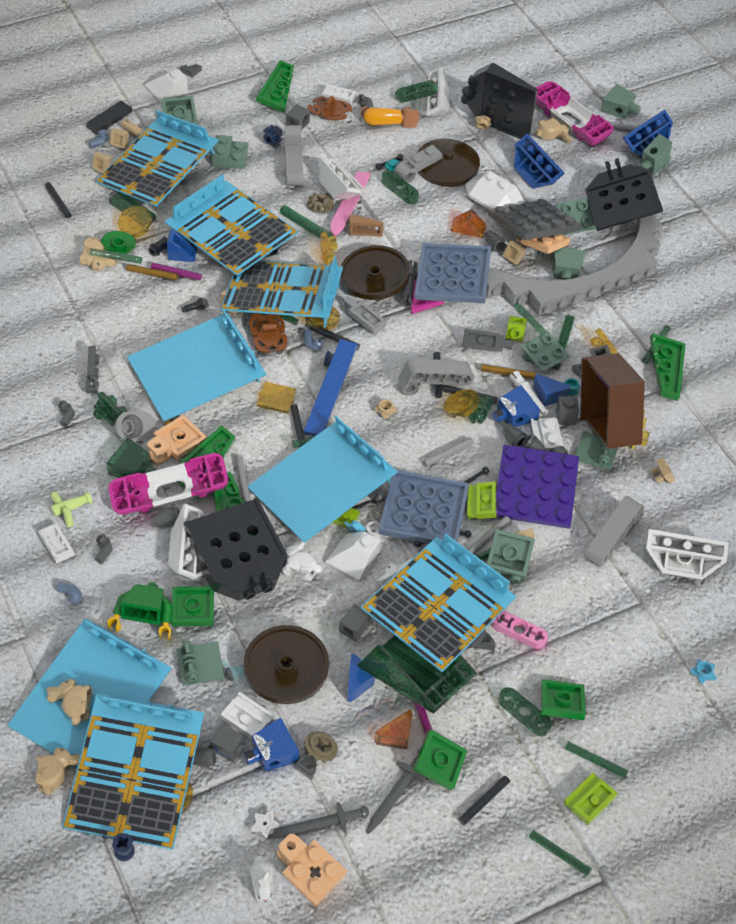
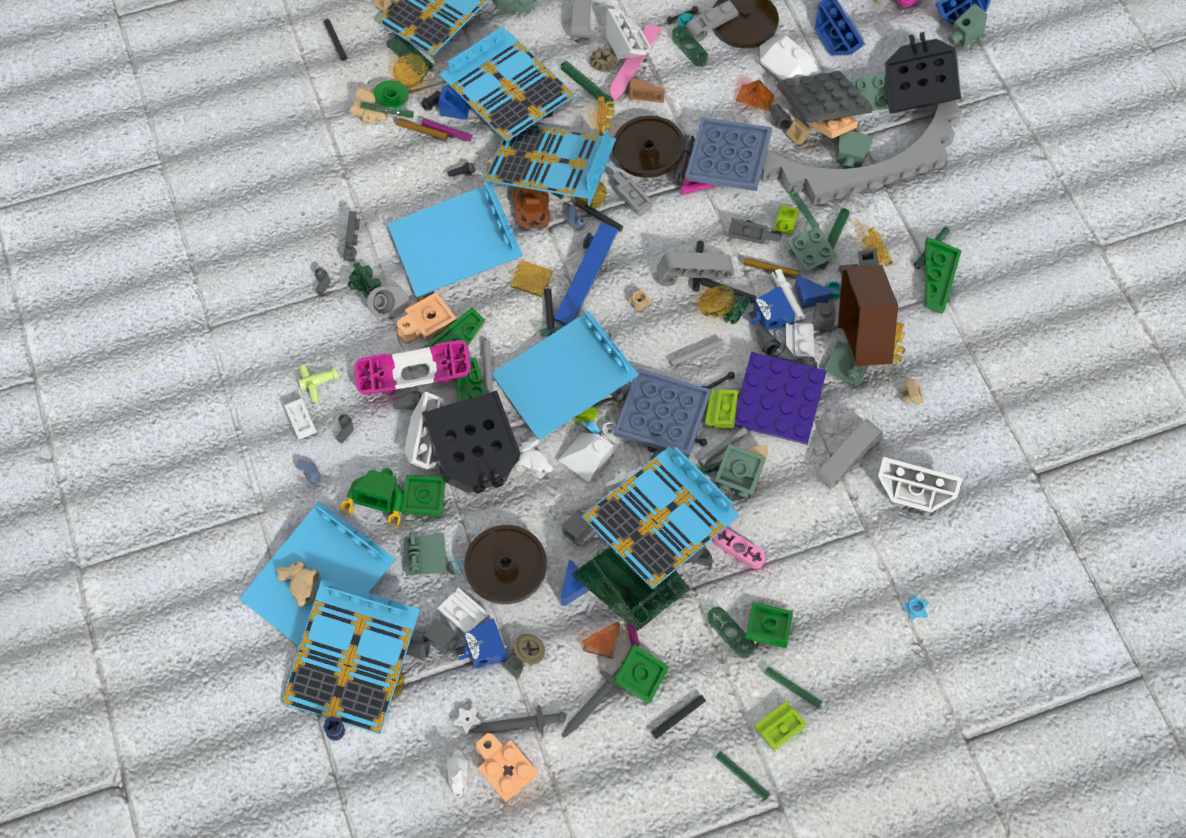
camera: 10 degrees right, 10 degrees up
(52, 769) = (276, 645): tan animal -> none
(129, 460) = (378, 338): clear green torso -> none

